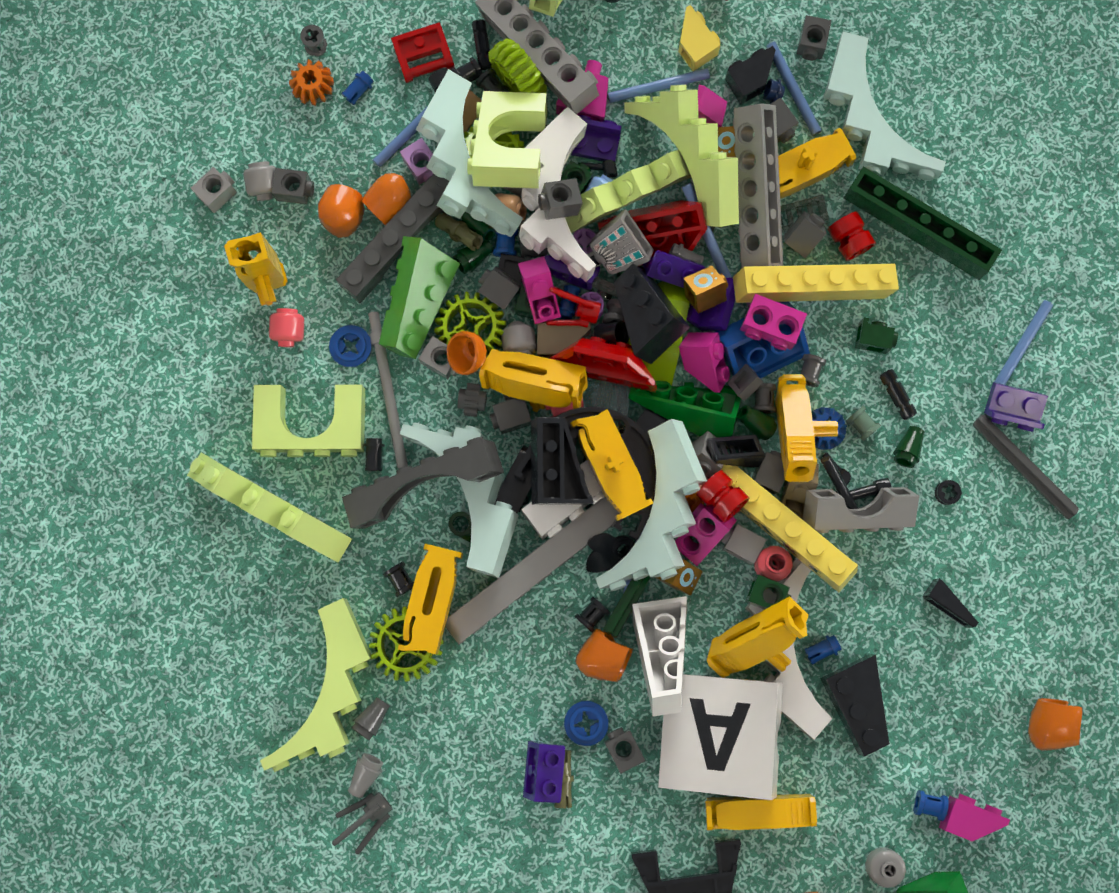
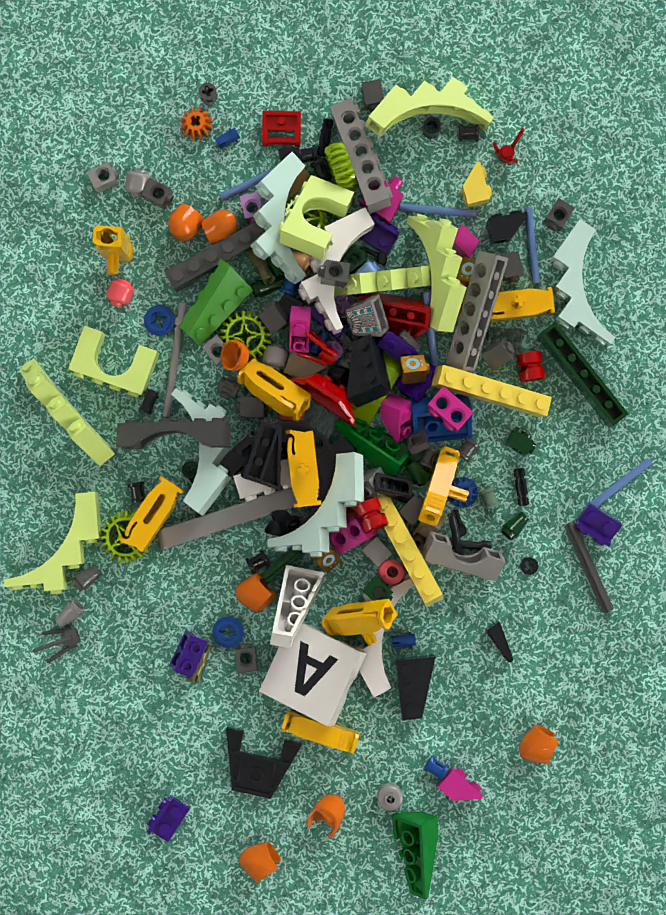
camera: 25 degrees right, 5 degrees up
(773, 90) = (516, 243): dark blue plate -> none

